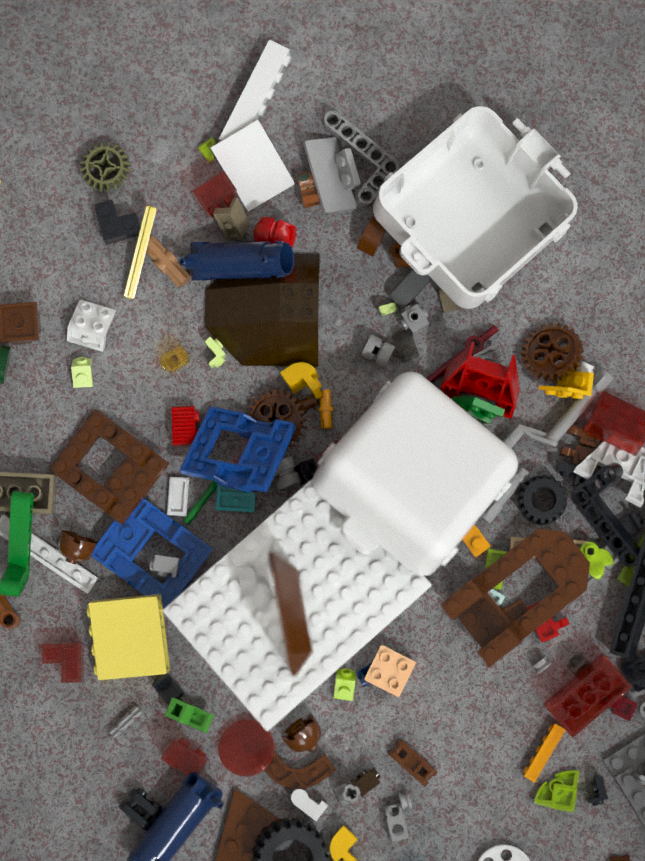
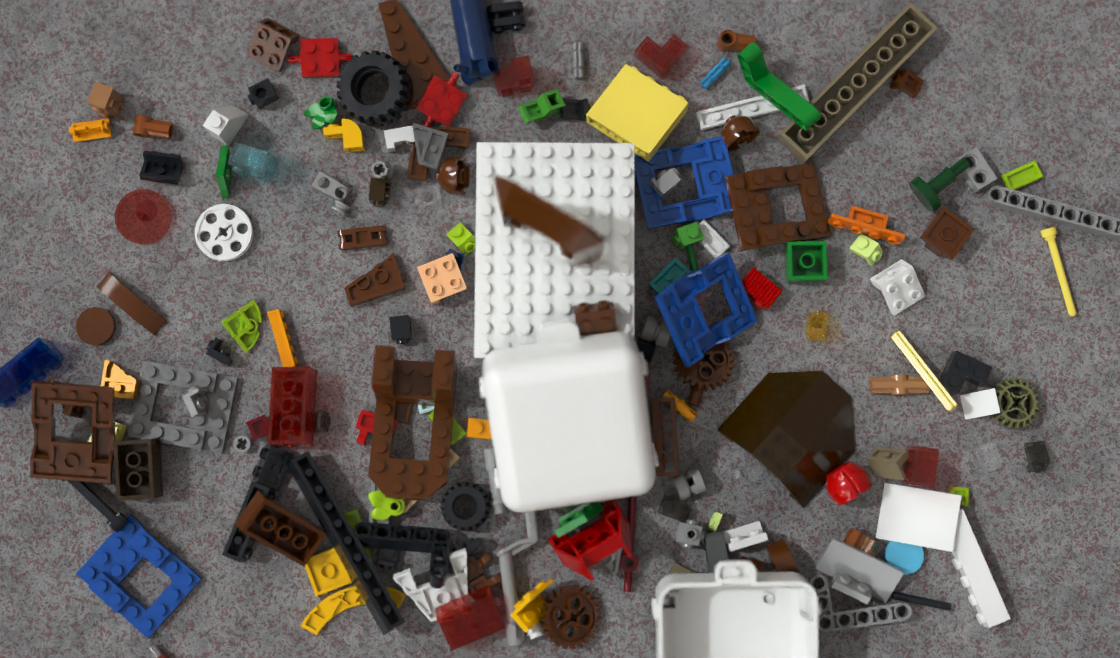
camera: 125 degrees right, 0 degrees up
(43, 606) = (715, 73): none -> dark azure axle
(61, 389) = (867, 223): none -> orange bracket
(128, 191) = (980, 403): none -> white sticker
(130, 118) = (1037, 456): none -> clear smoke bracket
(133, 408) = (805, 261): none -> green brick
(191, 515) = (687, 235): none -> bright green bracket
(216, 347) = (799, 364): yellowish green bracket -> none
(239, 260) = (852, 437): dark blue piece -> none
(246, 748) = (480, 123): clear red piece -> none
(253, 798) = (441, 100): none -> red plate
(291, 151) = (904, 556): none -> medium azure tile
(296, 774) = (429, 145): none -> flat silver wing
(302, 375) = (721, 407): yellow brick -> none
(311, 112) = (921, 601): none -> black bar
(322, 520) = (595, 317): none -> reddish brown bracket
(363, 403) = (658, 436): none -> reddish brown fence
(379, 277) = (744, 536): none -> white bracket
(437, 719) = (377, 283): none -> reddish brown wing
(455, 668) = (400, 329): none -> black brick
(541, 665) = (345, 394): light grey bush -> none

